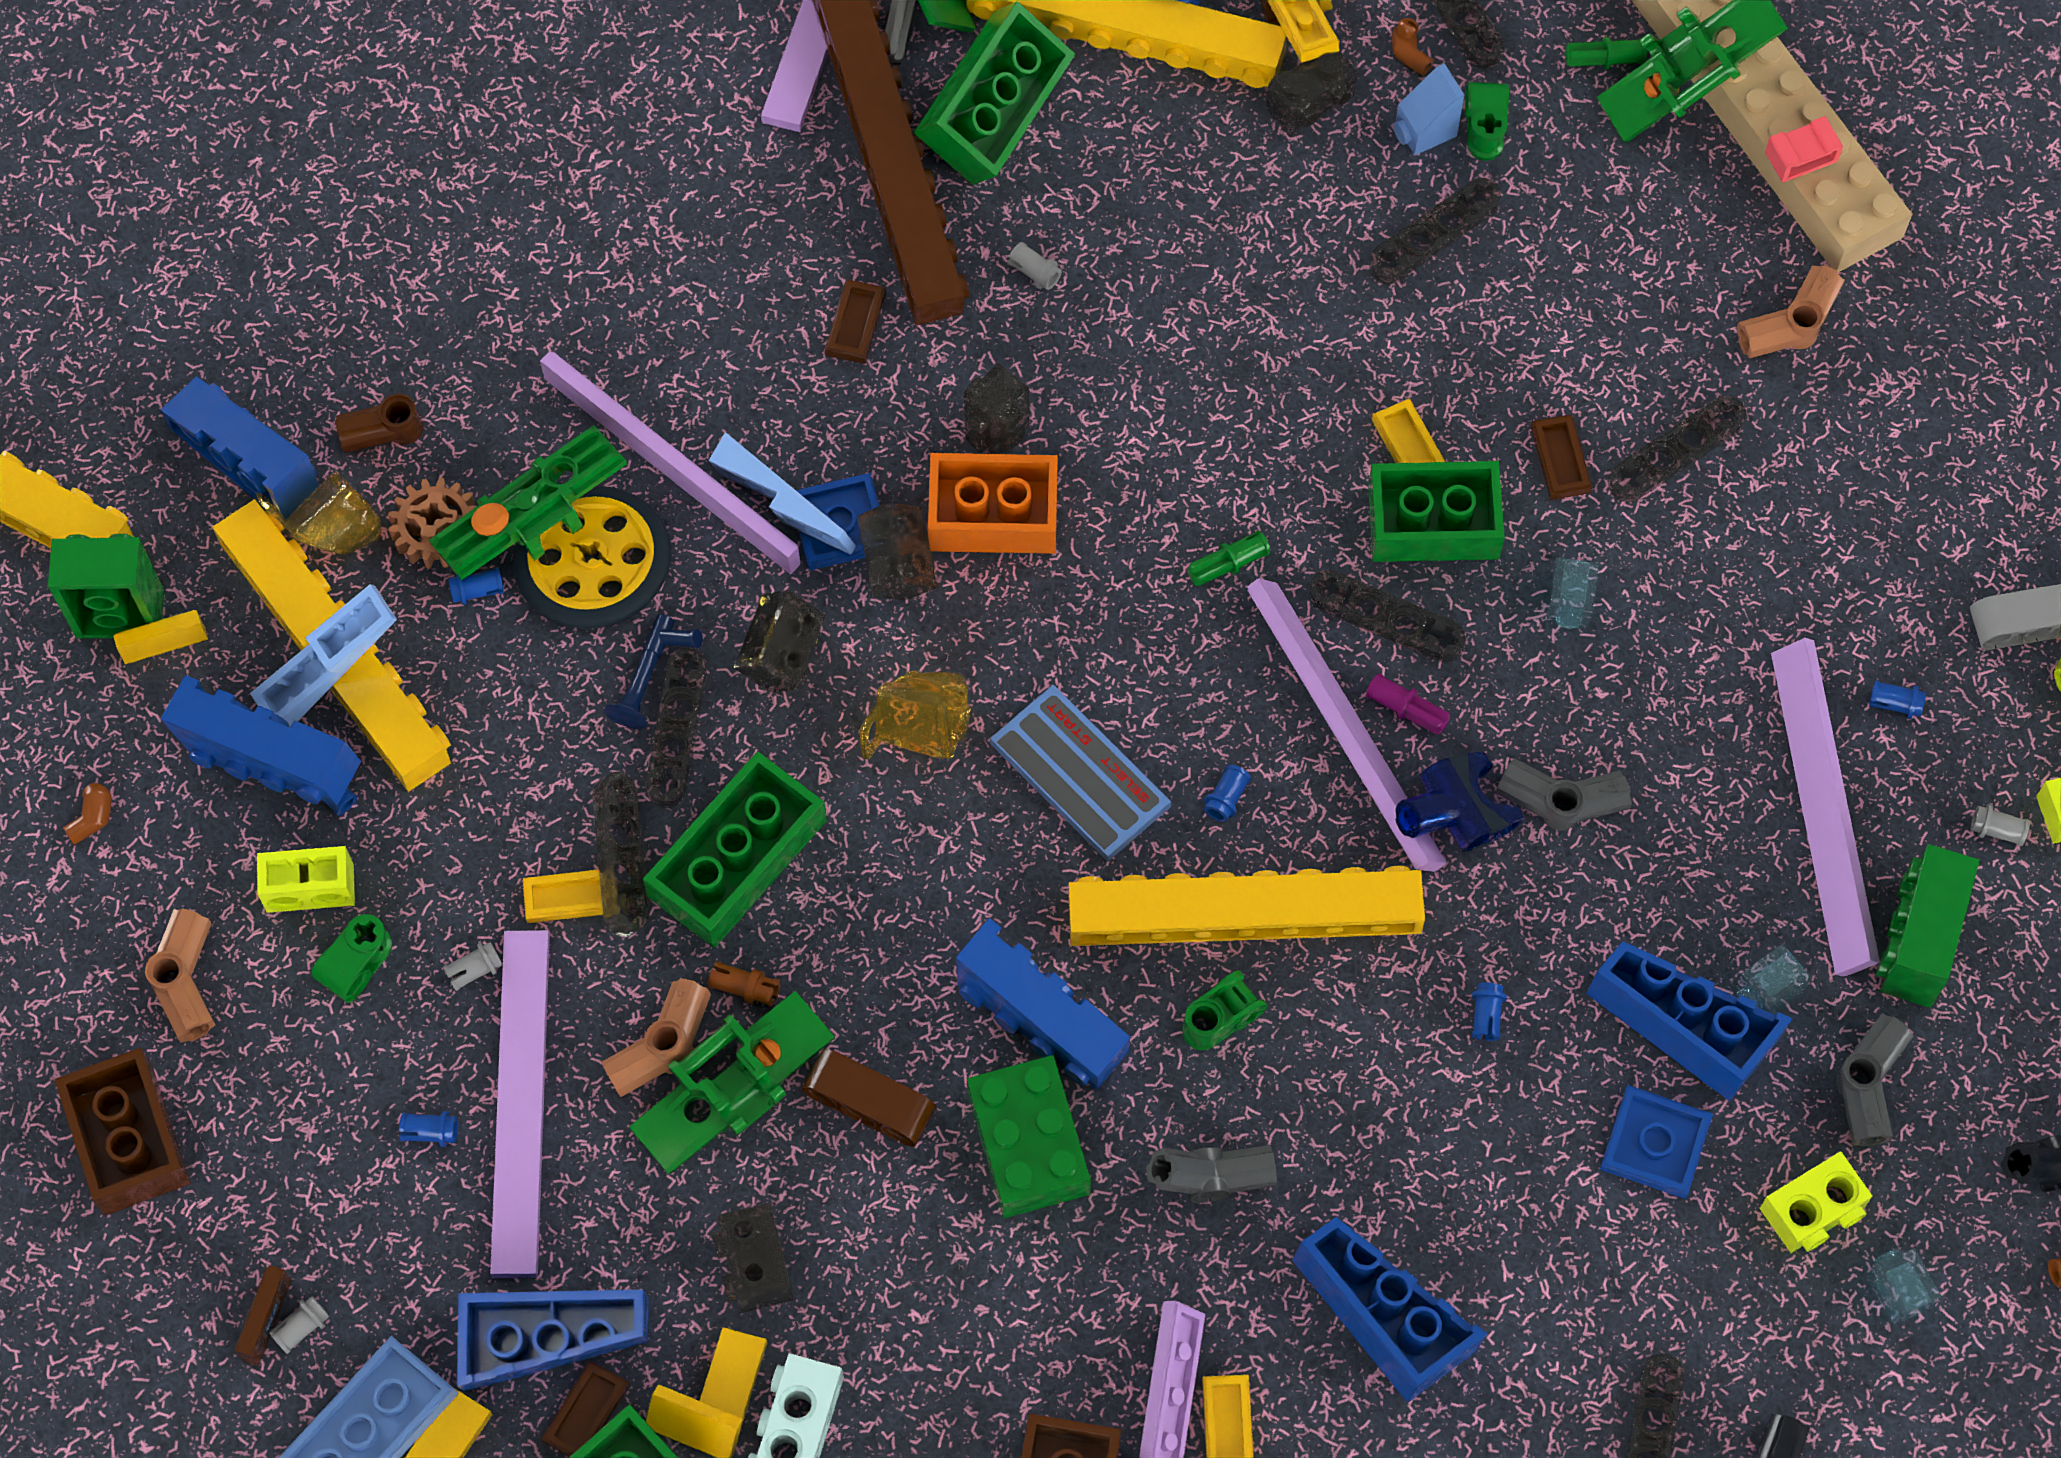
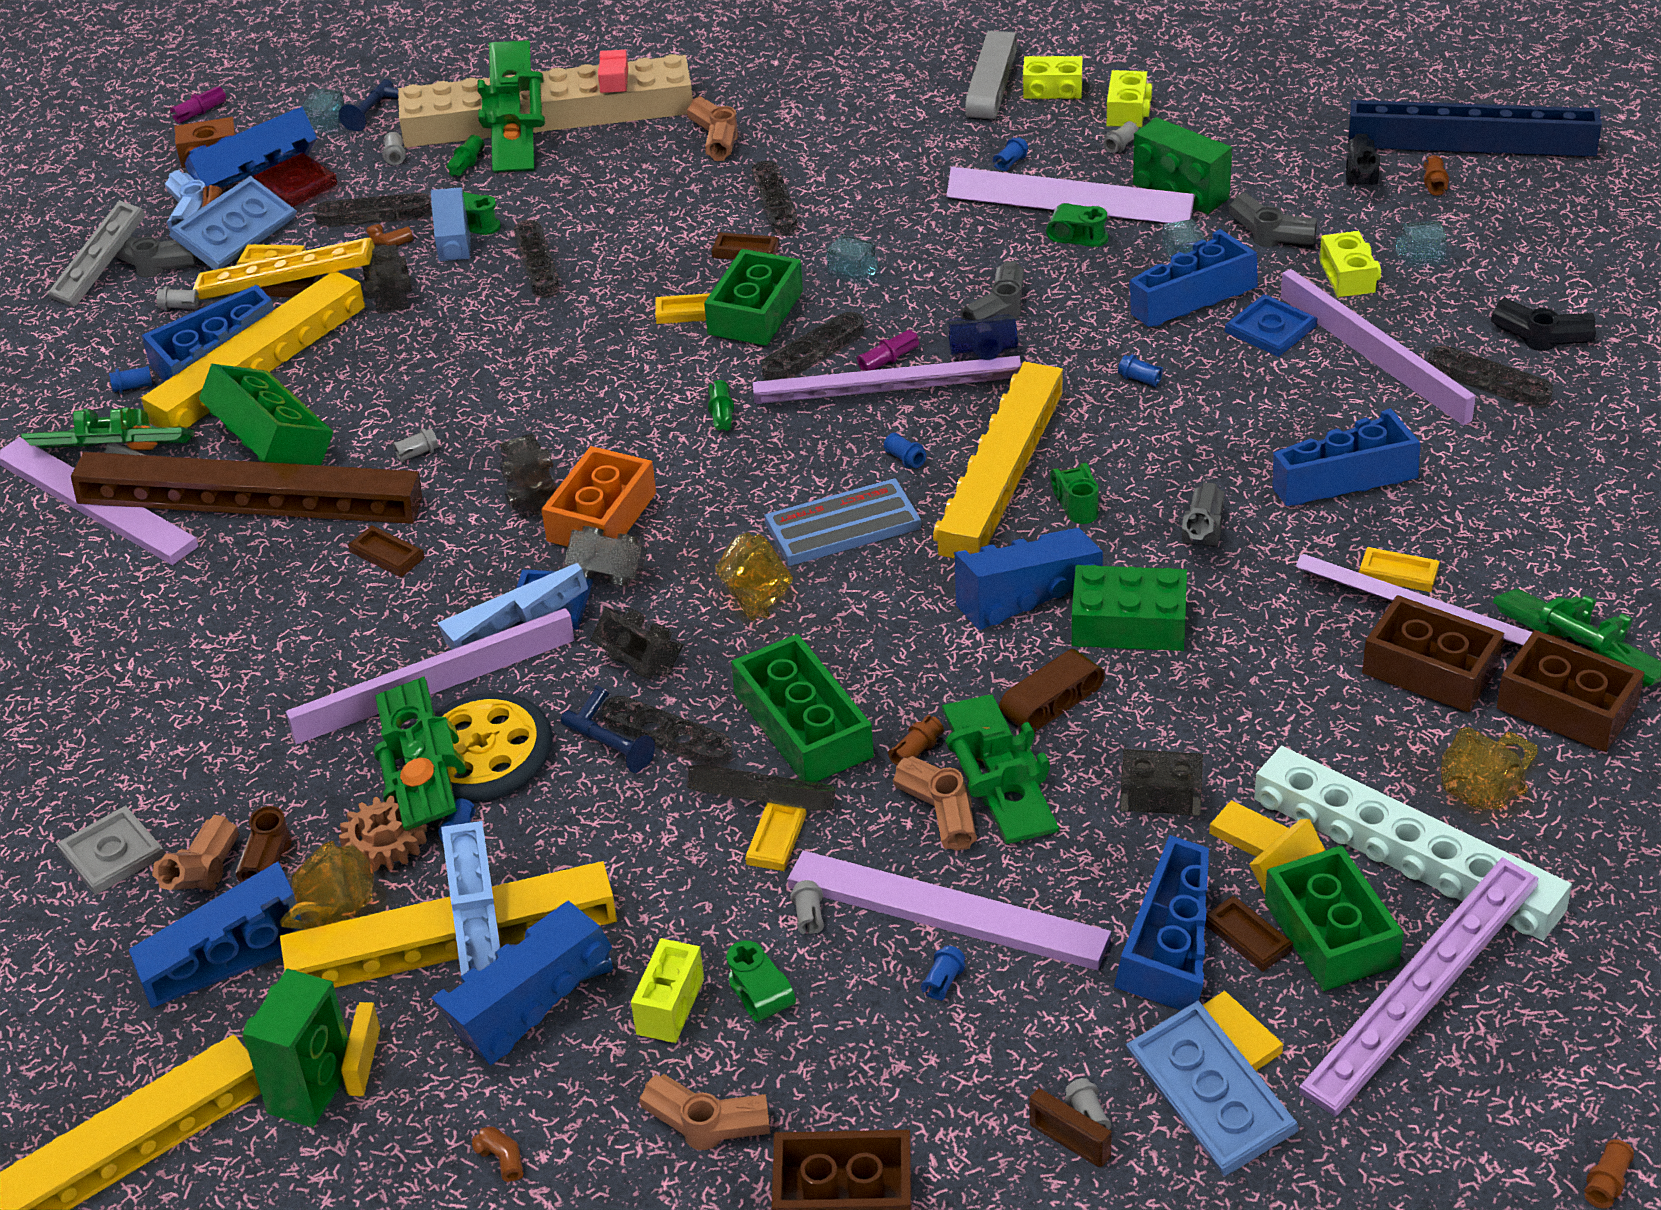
camera: 65 degrees left, 25 degrees down
(335, 374) = (202, 862): none -> nougat piece
(342, 286) = (110, 850): none -> light grey tile
(1648, 1284) = (1379, 347): none -> lavender tile
(1762, 833) = (1077, 223): none -> green piece

